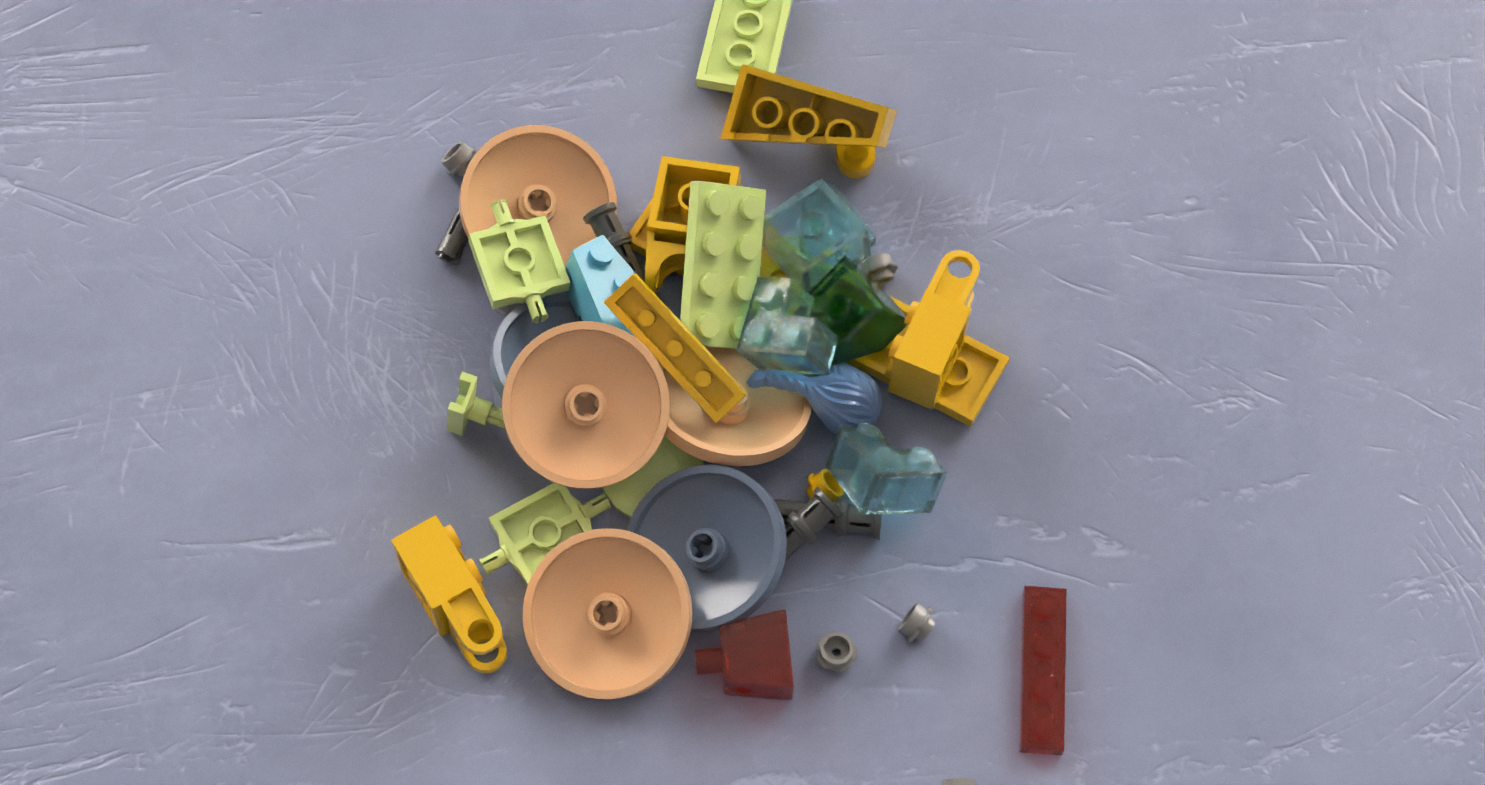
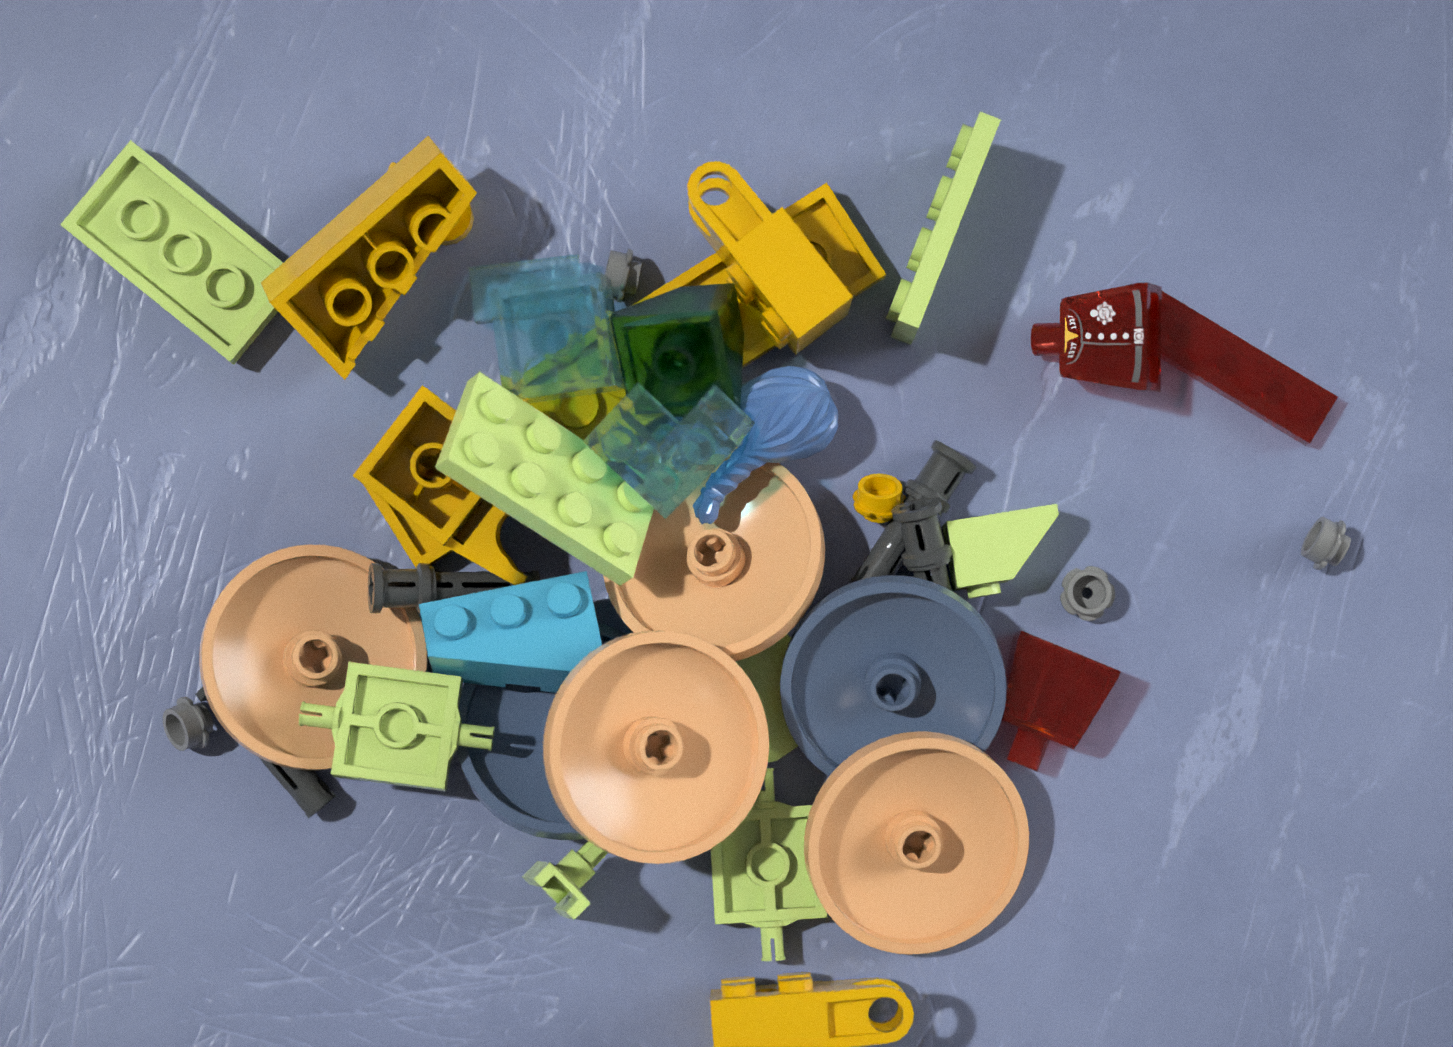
camera: 60 degrees left, 20 degrees up
(675, 347) = (635, 597): yellow plate -> none
(834, 574) = (994, 547): none -> yellowish green slope
(884, 477) = (912, 431): clear light blue brick -> none
(917, 623) = (1101, 480): light grey plate -> none
(1014, 574) = (1107, 337): none -> clear red torso
(1022, 434) = (947, 210): none -> yellowish green plate

